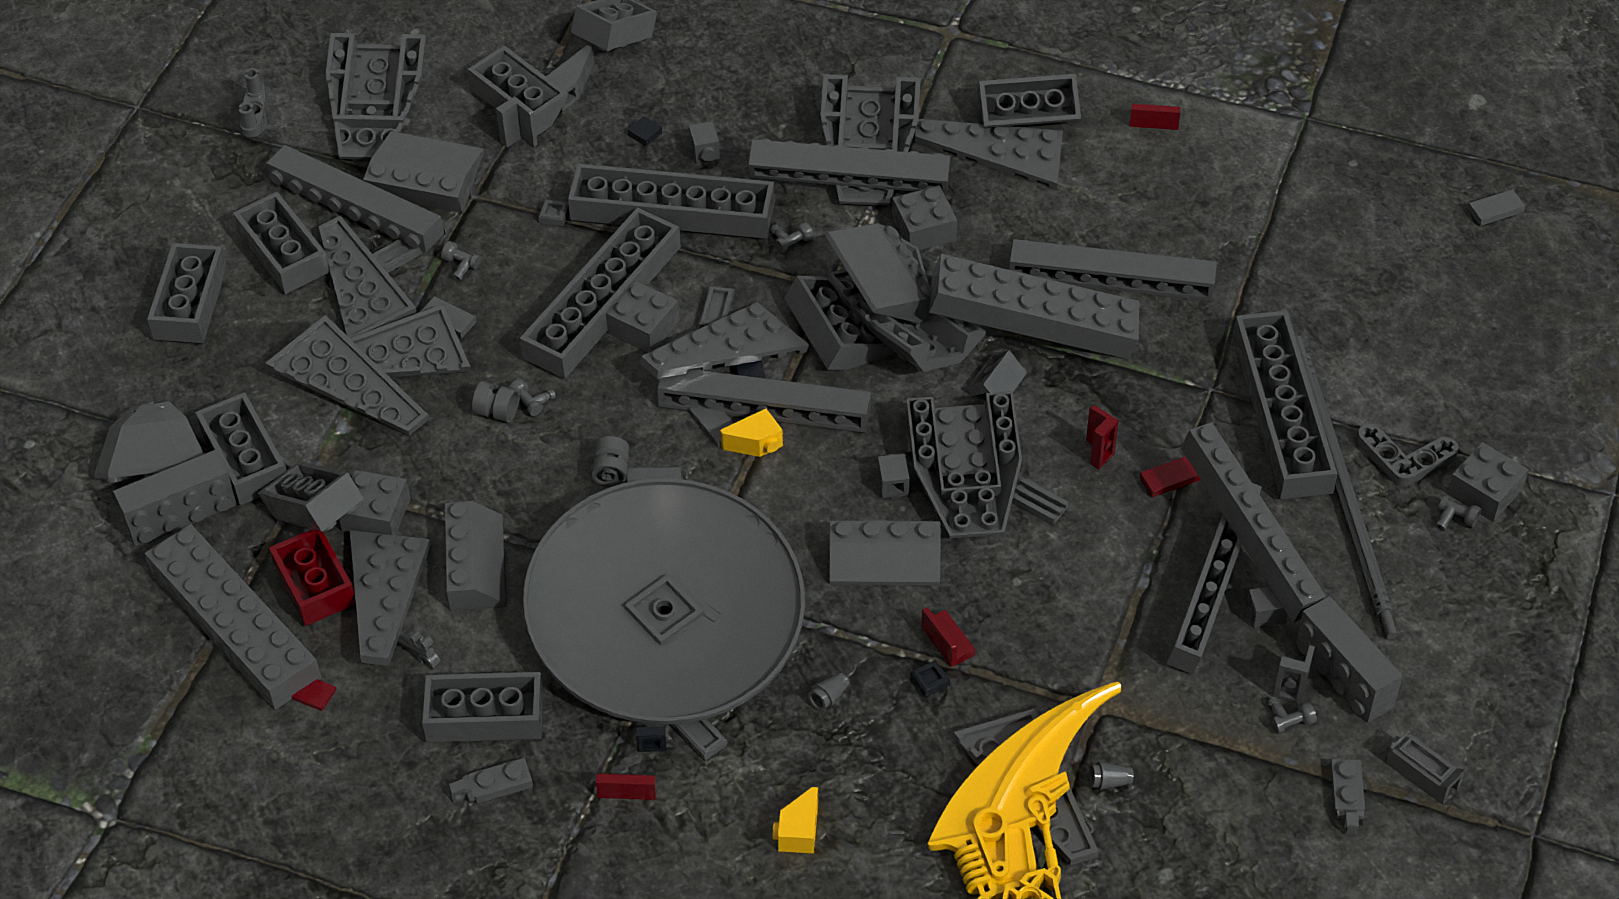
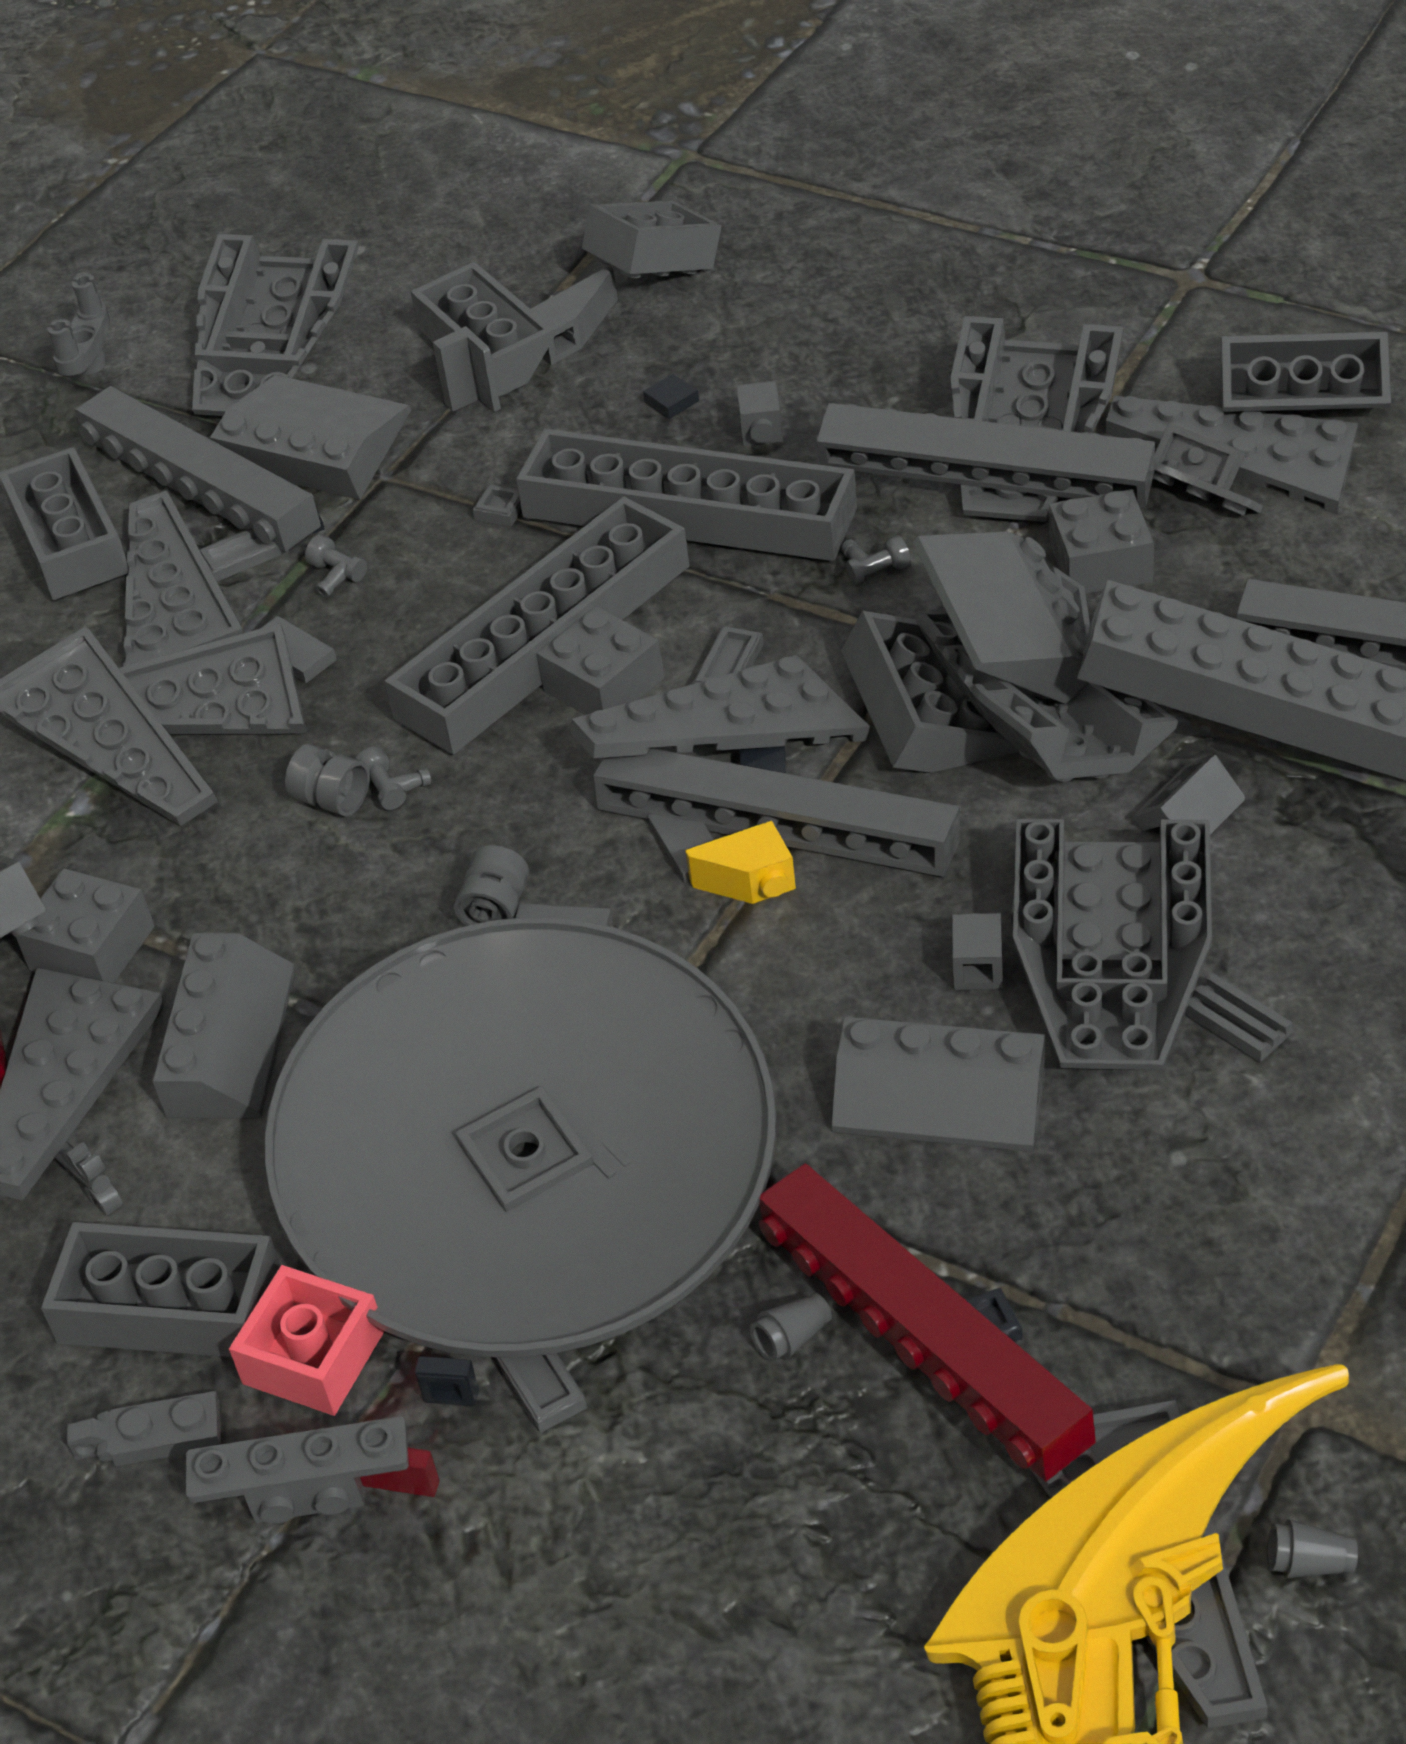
camera: 15 degrees right, 5 degrees down
(570, 725) = (305, 1340): none -> coral brick
(585, 793) = (299, 1470): none -> dark grey bracket
(798, 824) = (683, 1576): yellow slope -> none
(899, 680) = (928, 1323): none -> dark red brick
(946, 637) = (1030, 1247): dark red panel -> none
(976, 164) = (1203, 465): none -> dark grey bracket
(1102, 435) = (1366, 910): dark red panel -> none

